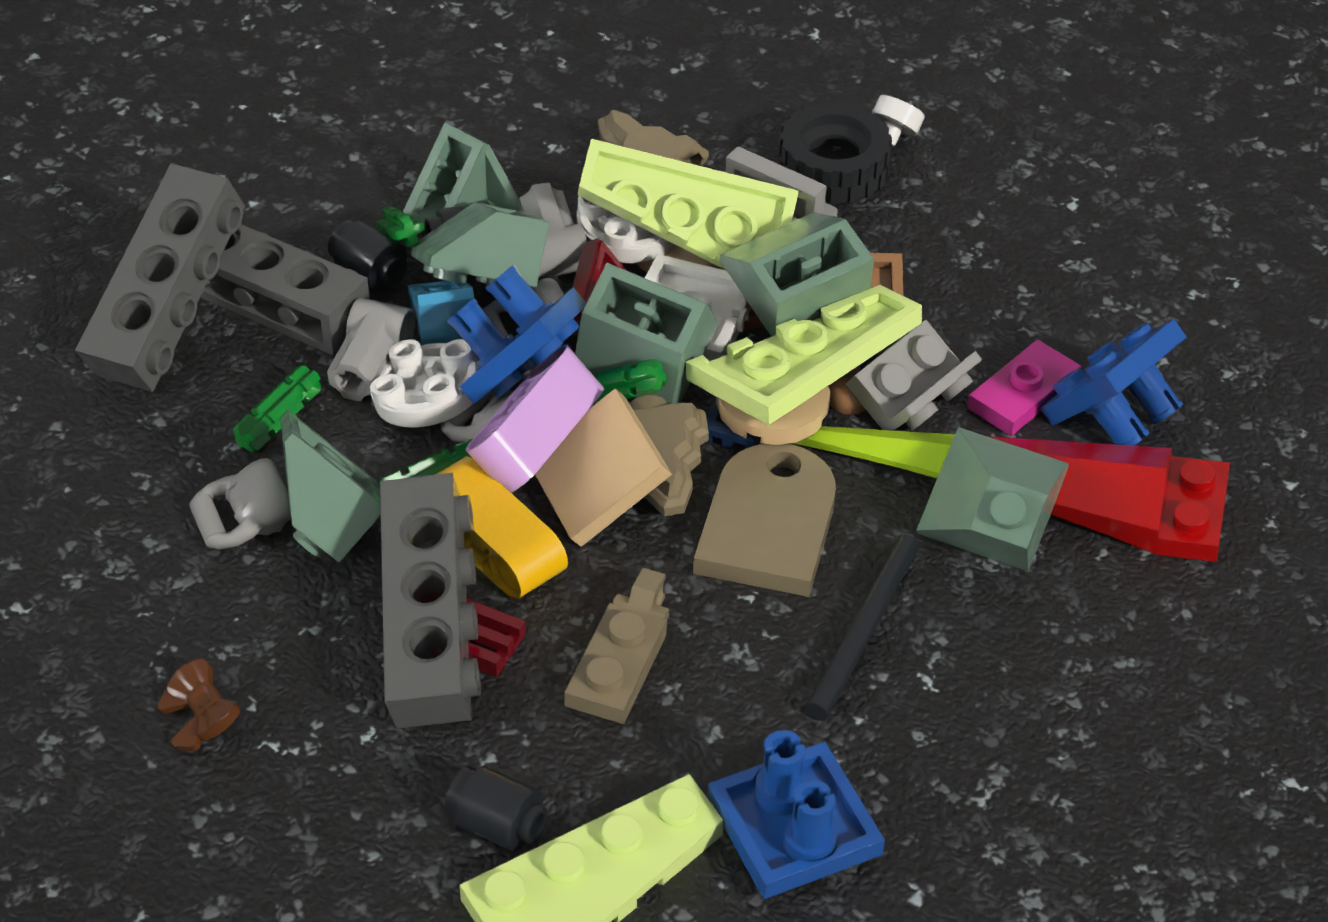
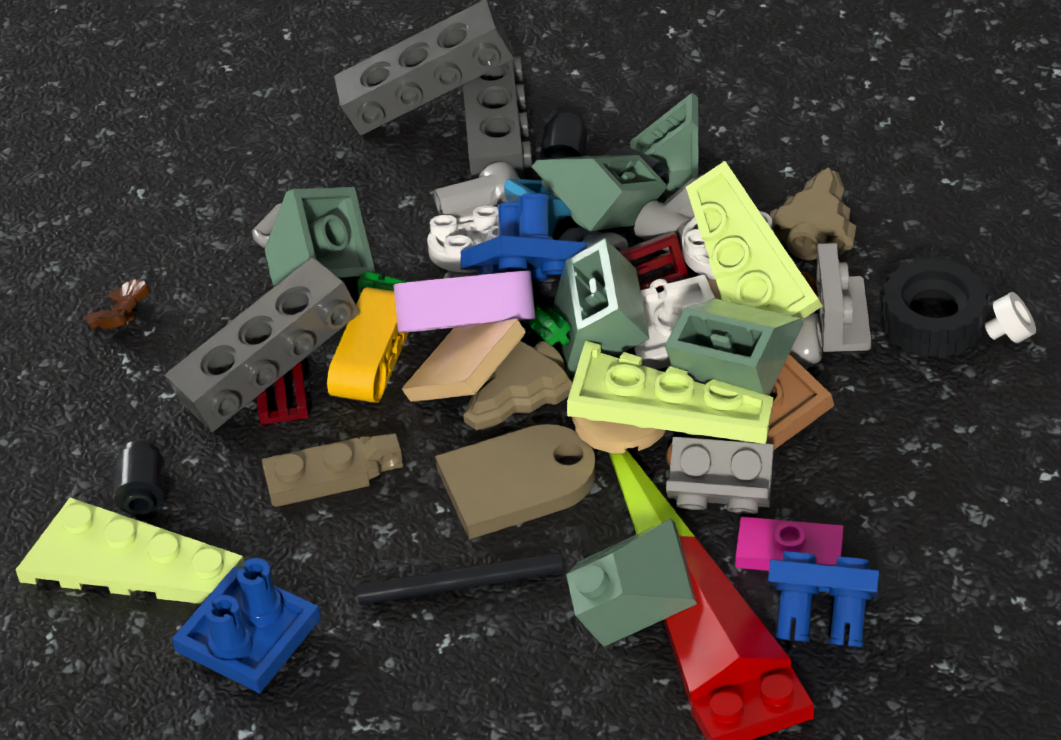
camera: 60 degrees right, 0 degrees up
(254, 430) = (395, 192): green axle -> none
(400, 226) = (596, 140): green axle -> none

